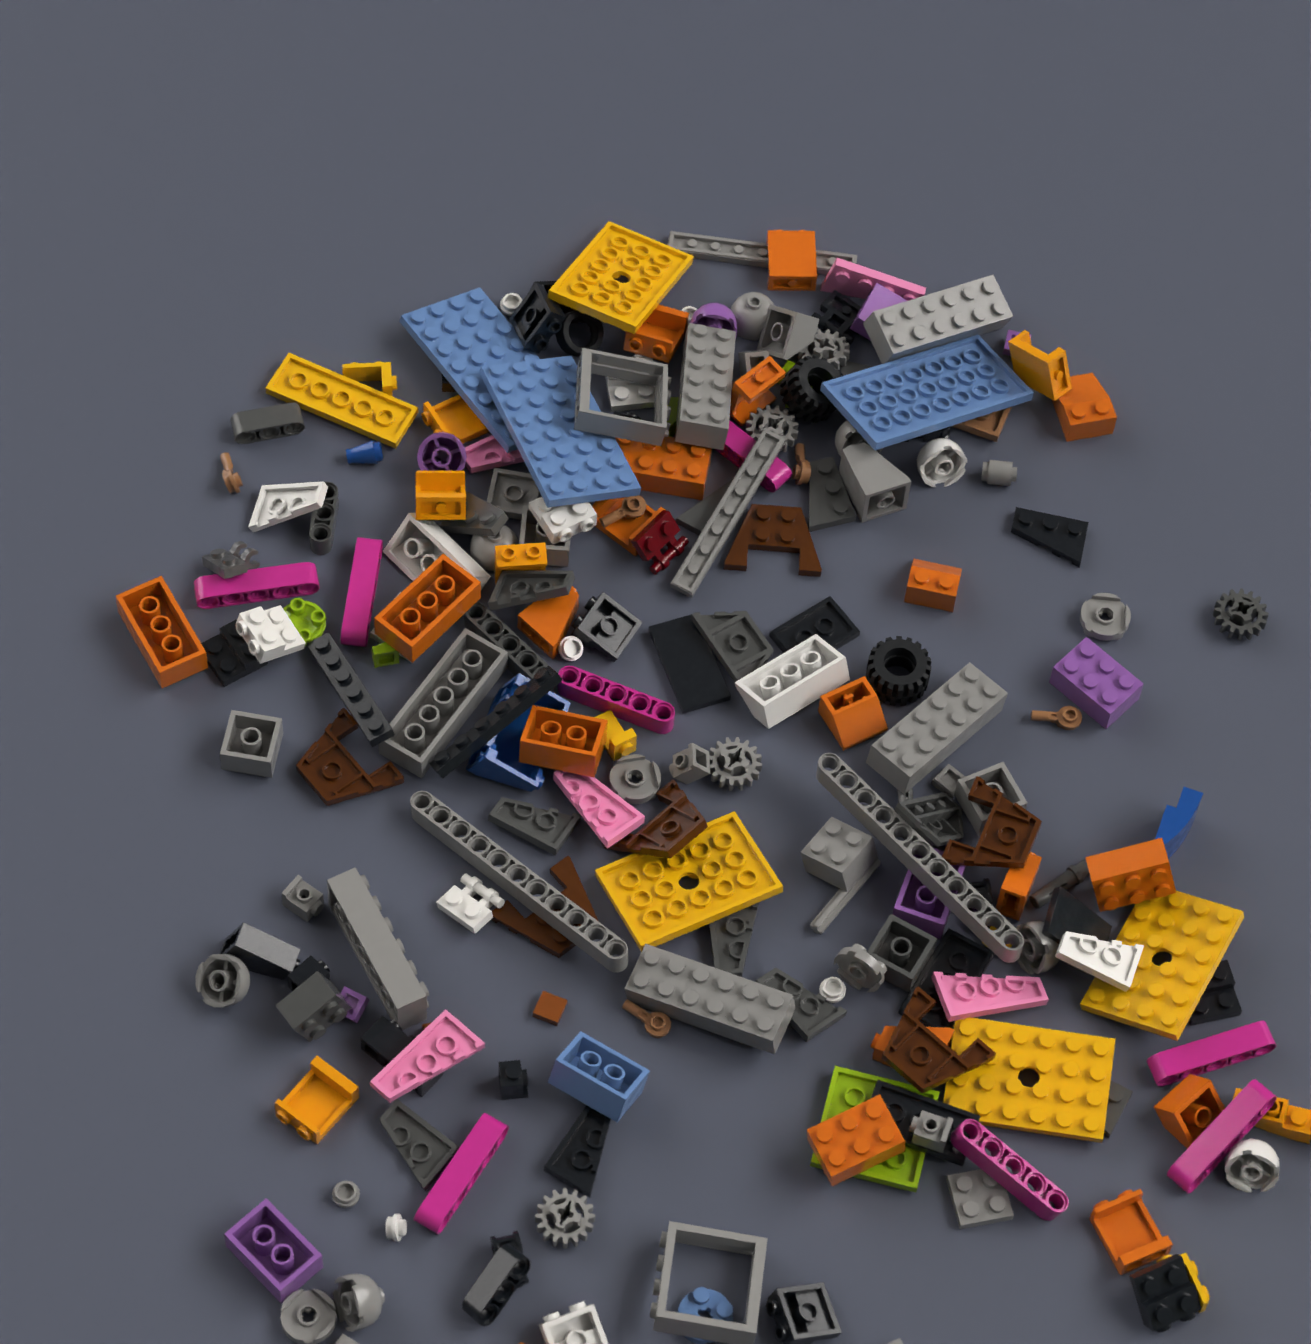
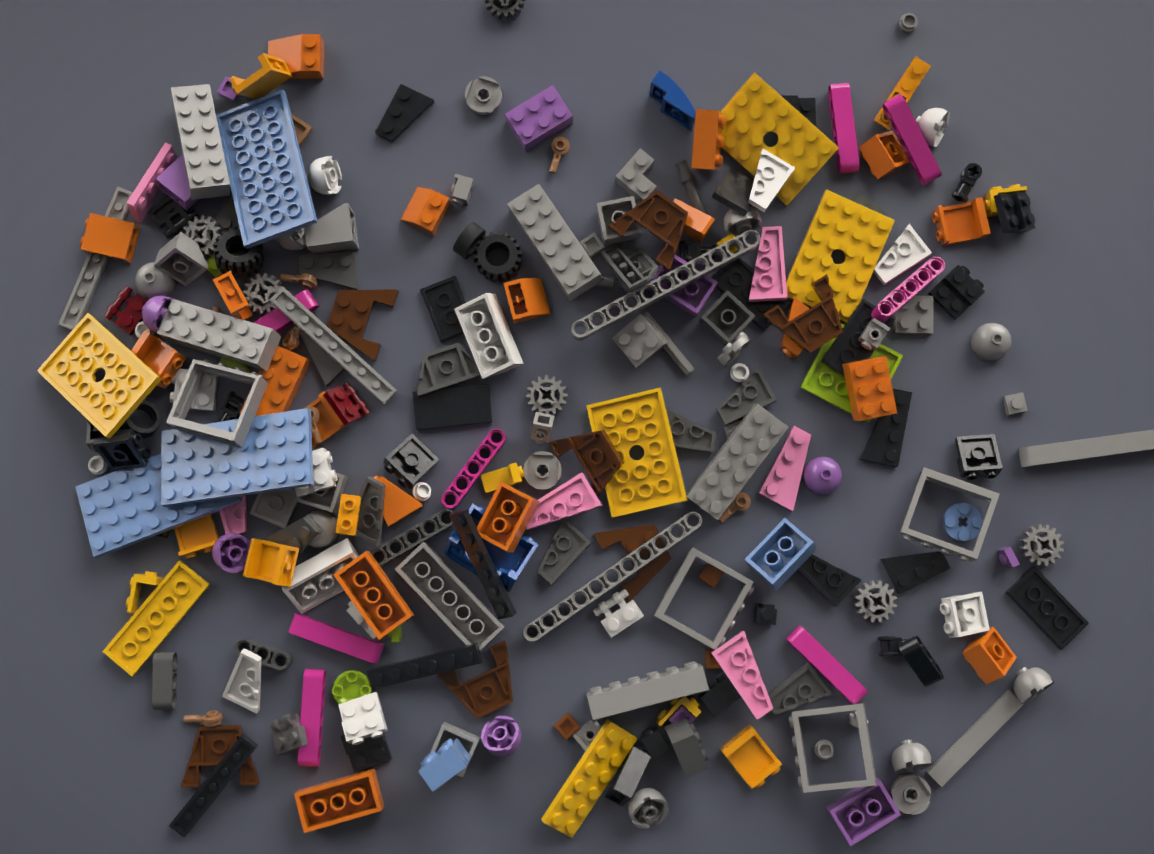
camera: 75 degrees left, 25 degrees up
(152, 495) = (213, 785): none -> black plate
(199, 496) = (209, 749): none -> reddish brown wing
(231, 900) = (589, 778): none -> yellow plate
(237, 712) = (444, 764): none -> medium blue brick
(279, 794) = (501, 736): none -> medium lavender cylinder
(310, 872) = (567, 726): none -> dark orange tile
(362, 1223) = (800, 760): none -> light grey window
(365, 453) = (211, 608): blue cone -> none
(370, 1010) = (691, 704): none -> yellow bracket
(527, 962) = (675, 583): none -> light grey window
(622, 1266) = (914, 569): none -> black wing
(699, 296) = (132, 313): none -> dark red plate
(712, 1074) = (785, 475): none -> bright pink wing
(721, 1120) = (822, 475): none -> medium lavender cylinder
(722, 470) = (291, 339): none -> medium nougat plate
(750, 359) = (202, 292): light grey brick -> none
(802, 1195) = (888, 434): none -> black wing
(913, 623) = (468, 240): none -> black tyre
(972, 616) = (462, 190): none -> light grey brick
(972, 1306) = (991, 341): none -> light grey cylinder
(999, 472) = (342, 135): light grey brick -> none
(1029, 1247) = (957, 291): none -> black plate
(1061, 807) = (633, 179): none -> light grey brick
(1062, 1167) = (902, 256): none -> white wing
(1191, 1228) = (967, 182): none -> black connector

